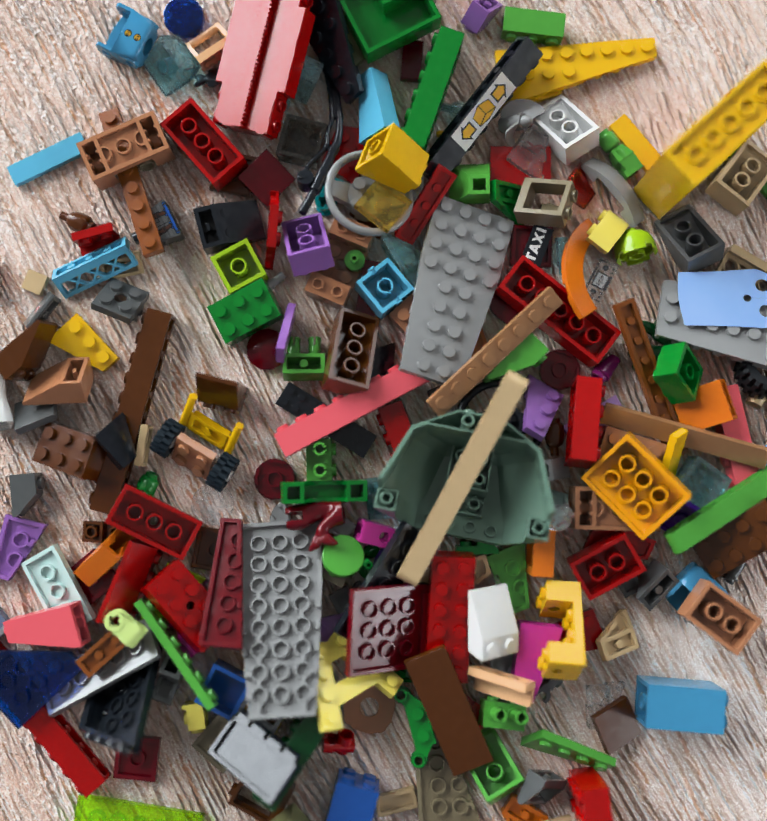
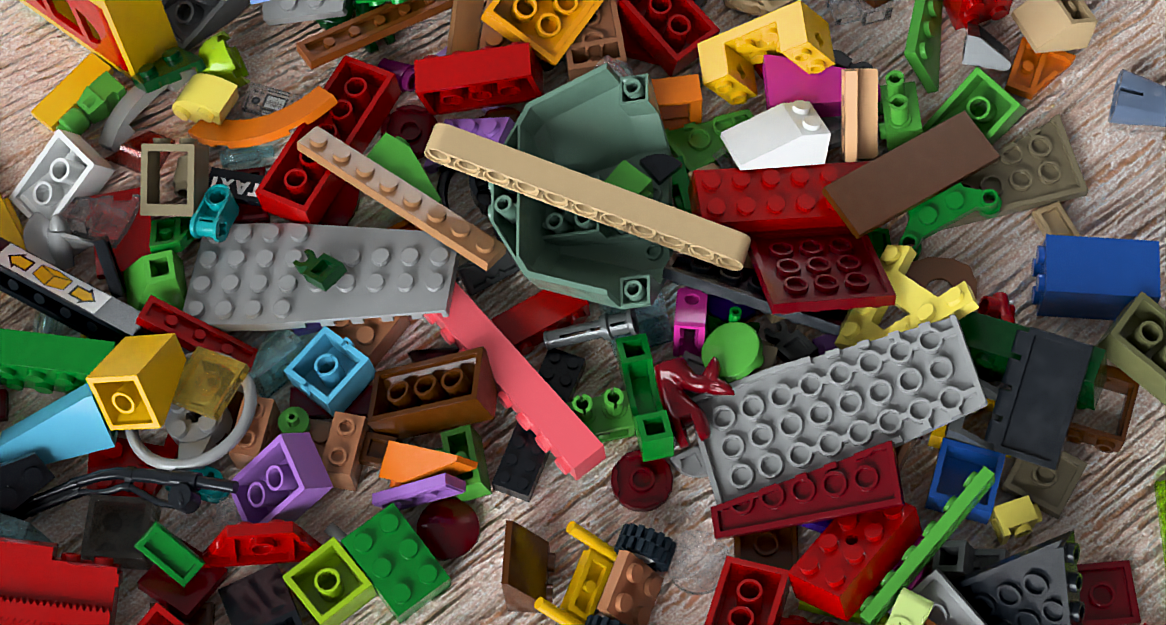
camera: 90 degrees left, 20 degrees down
(276, 169) = (169, 553): none -> green tile
(306, 332) = (412, 463): none -> orange slope
(325, 312) = (374, 449): none -> reddish brown tile
(376, 464) = (605, 323): none -> dark grey pin
(449, 289) = (320, 271): none -> dark green plate
(472, 511) = (631, 179): none -> bright green brick
(486, 536) = (660, 166): none -> black tile
(490, 153) = (110, 266): none -> black tile
(512, 225) = (216, 214): none -> teal piece
(634, 207) = (166, 69): none -> dark green wing

